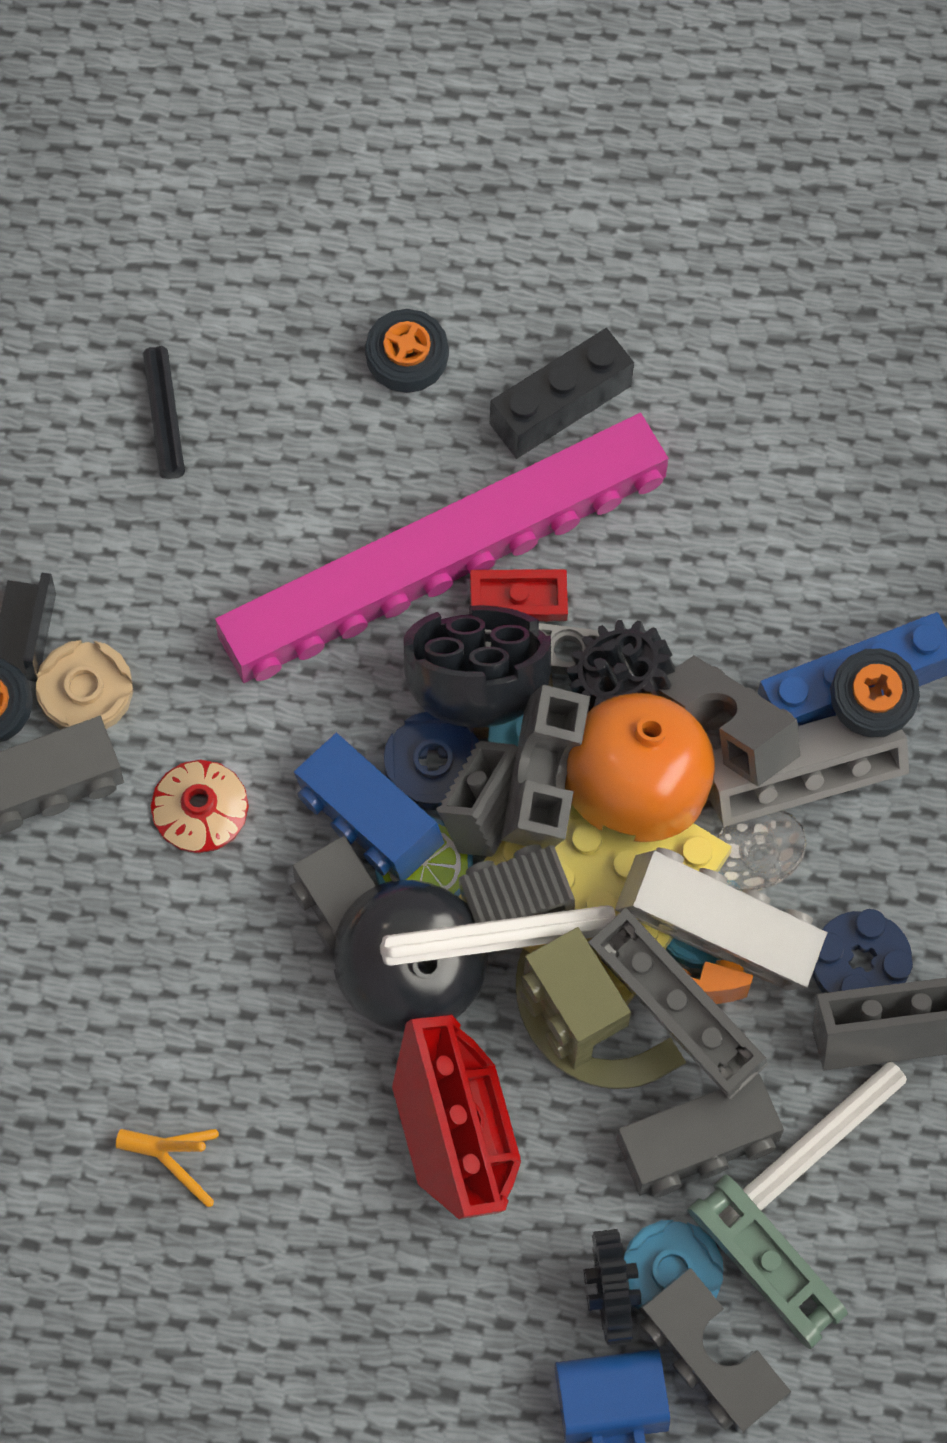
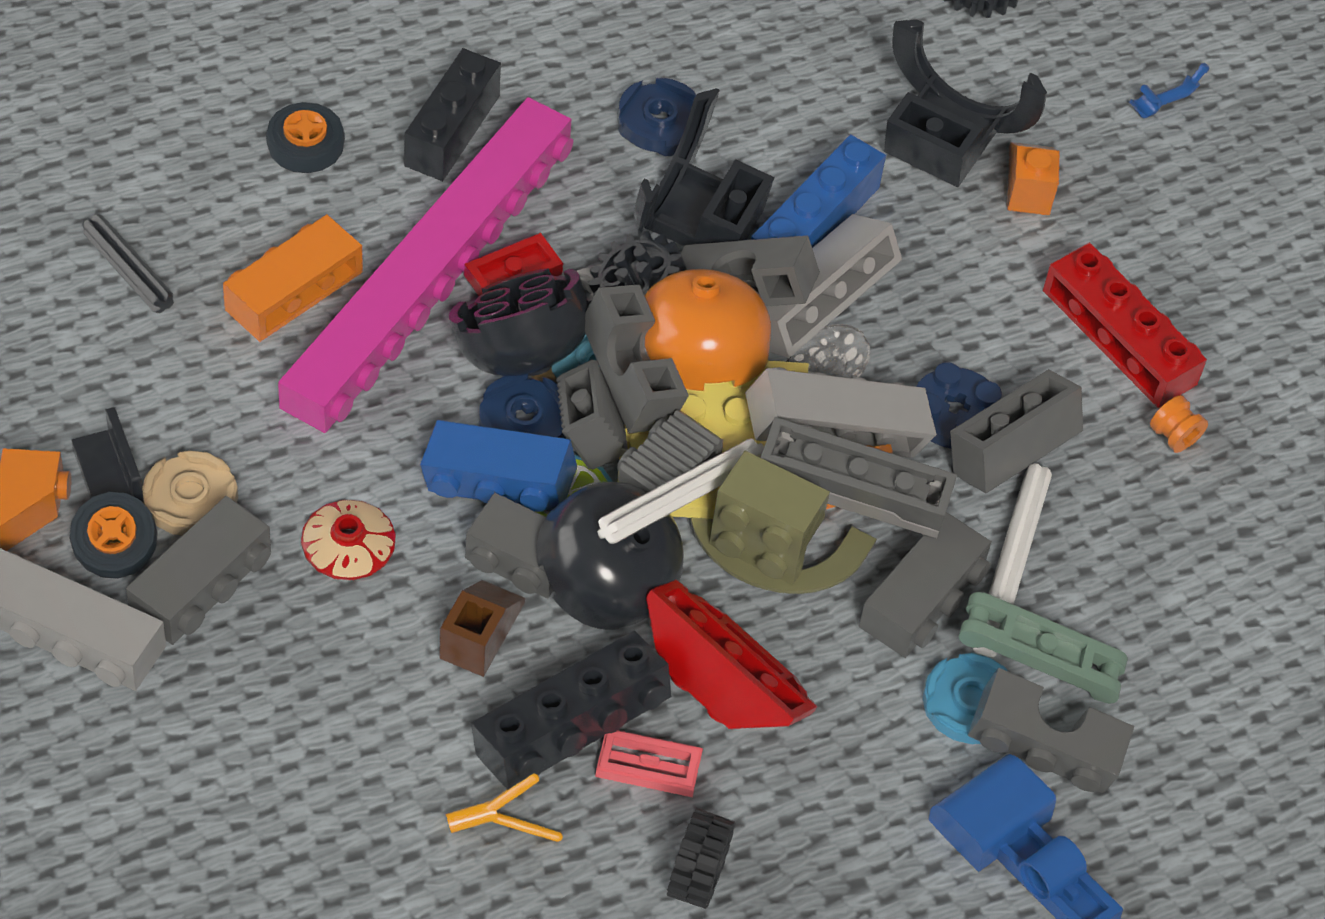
camera: 35 degrees left, 15 degrees down
(258, 958) = (478, 626): none -> reddish brown slope
(286, 1091) = (571, 710): none -> black brick
(302, 504) = (292, 277): none -> orange brick
(306, 1300) = (701, 858): none -> black tyre
(364, 1204) = (648, 778): none -> coral tile
(612, 1286) = (957, 739): black gear -> none
(741, 611) = (696, 205): none -> black piece
(766, 513) = (646, 130): none -> dark blue plate
(866, 708) = (839, 214): black wheel -> none

